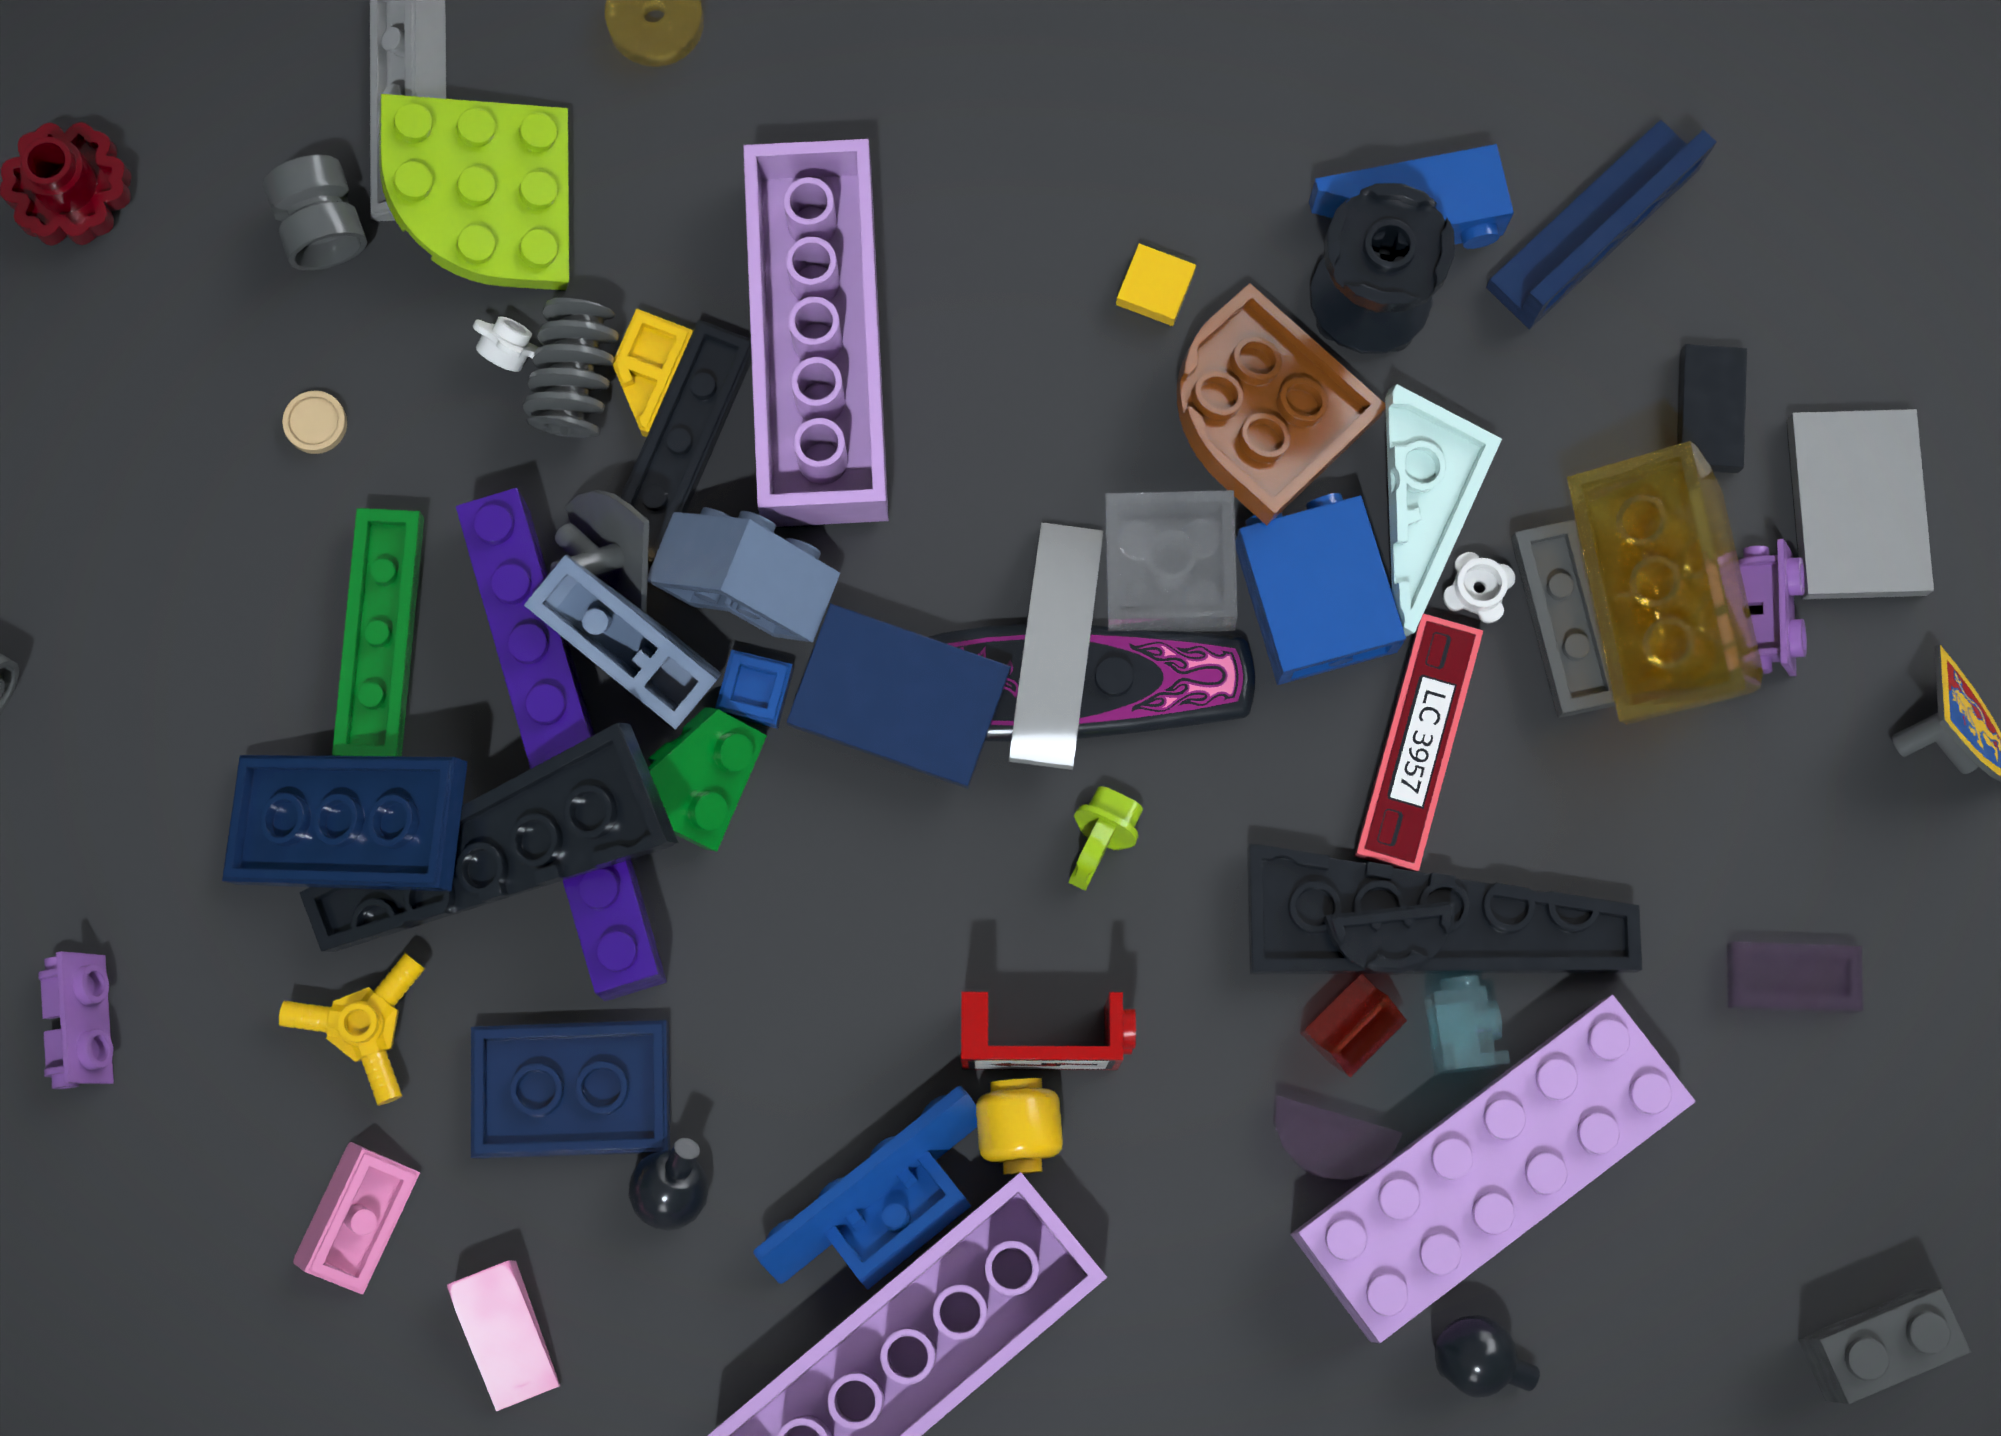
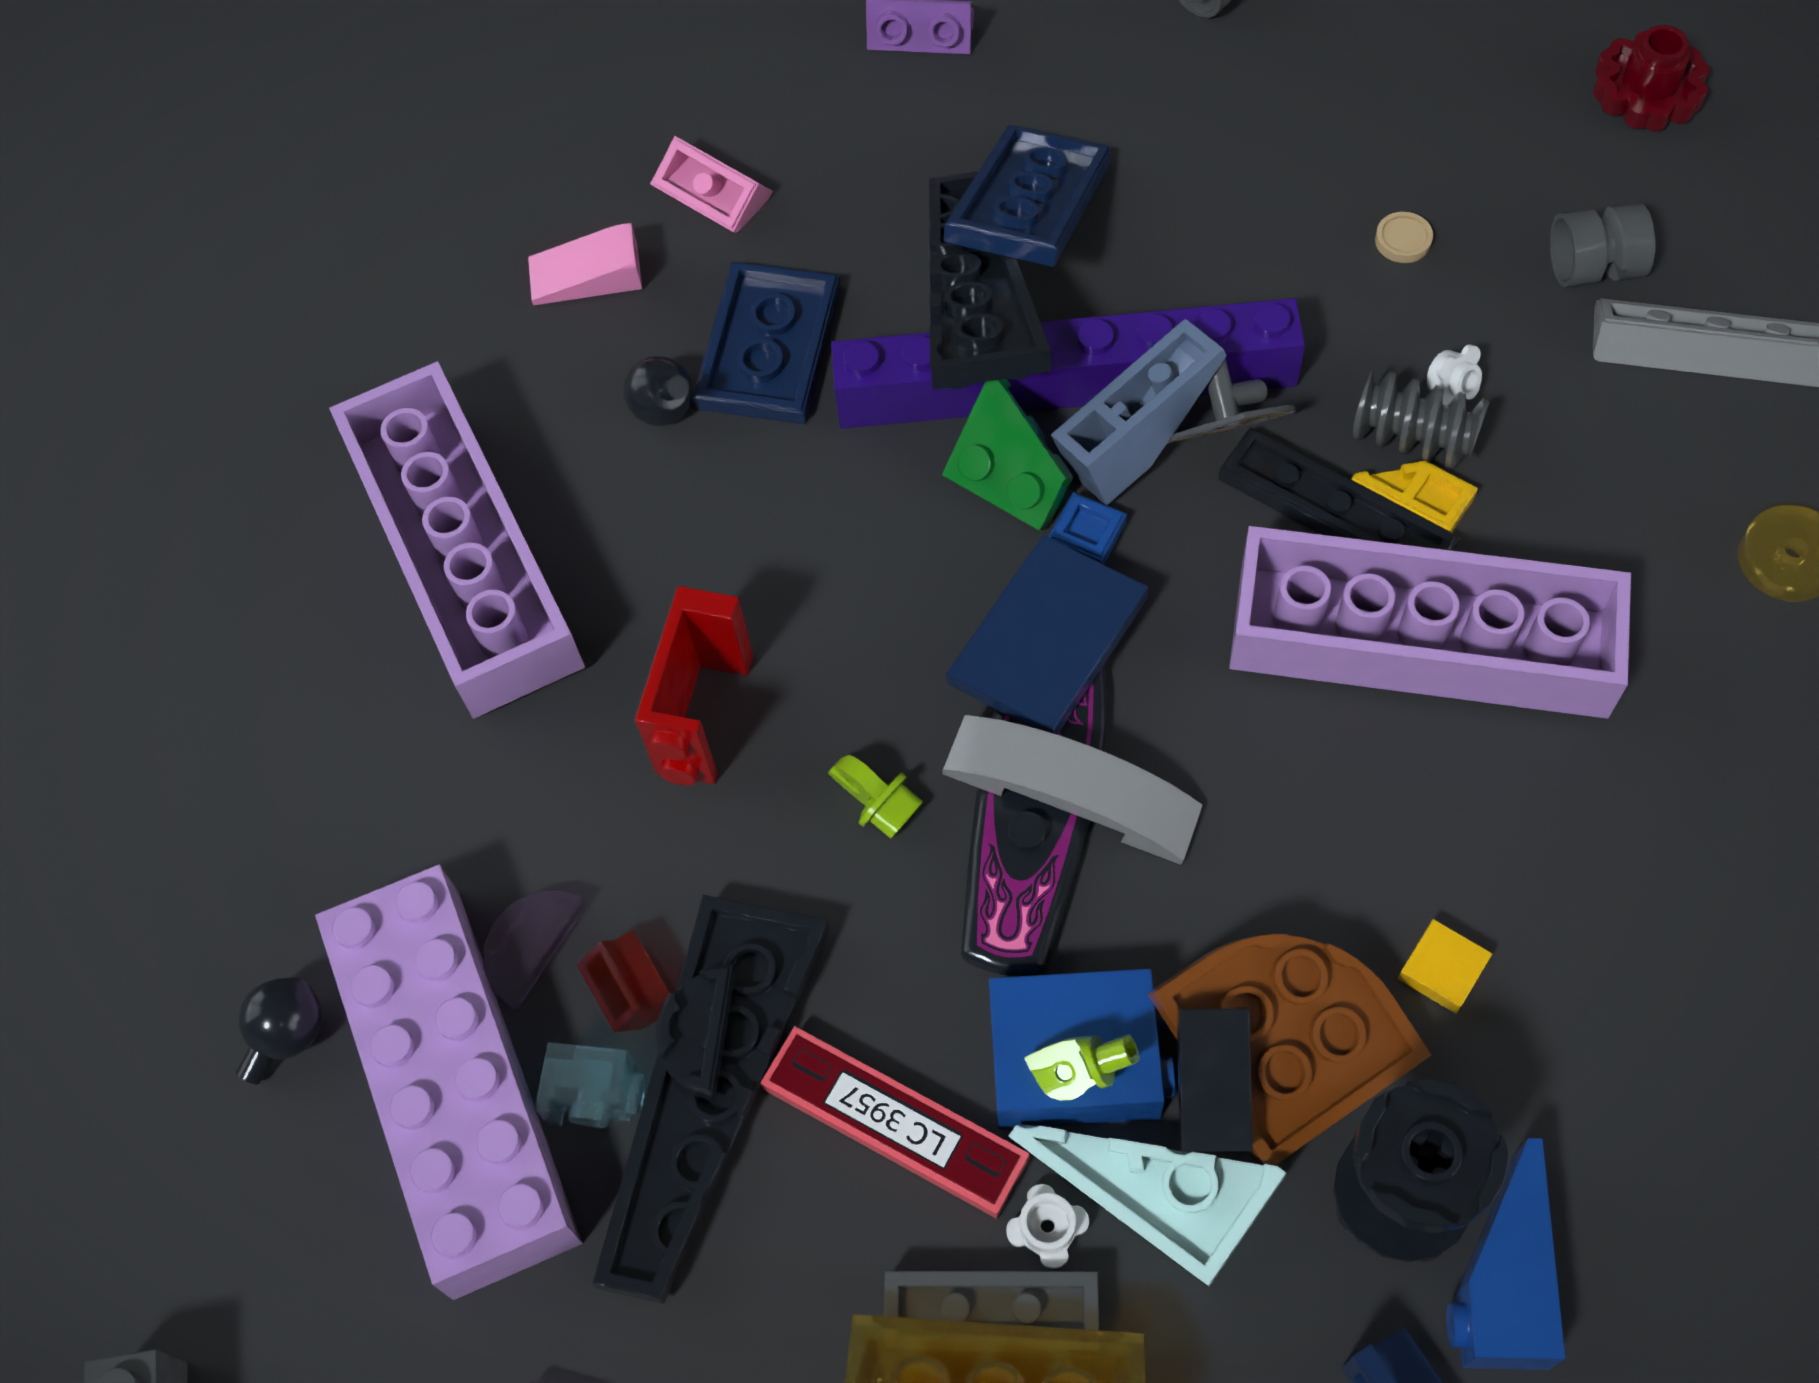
camera: 110 degrees right, 15 degrees down
(362, 1025) = (861, 202): yellow piece -> none
(378, 633) = (1196, 251): green plate -> none
(480, 186) = (1617, 376): lime plate -> none
(745, 571) = (1185, 519): sand blue brick -> none
(884, 1204) = (593, 550): blue bracket -> none
(1019, 1125) = (617, 663): yellow head -> none
(1171, 561) = (1128, 897): clear brick -> none
(1334, 452) = (1214, 1079): none -> black tile
(1354, 566) = (1077, 1063): none -> lime piece

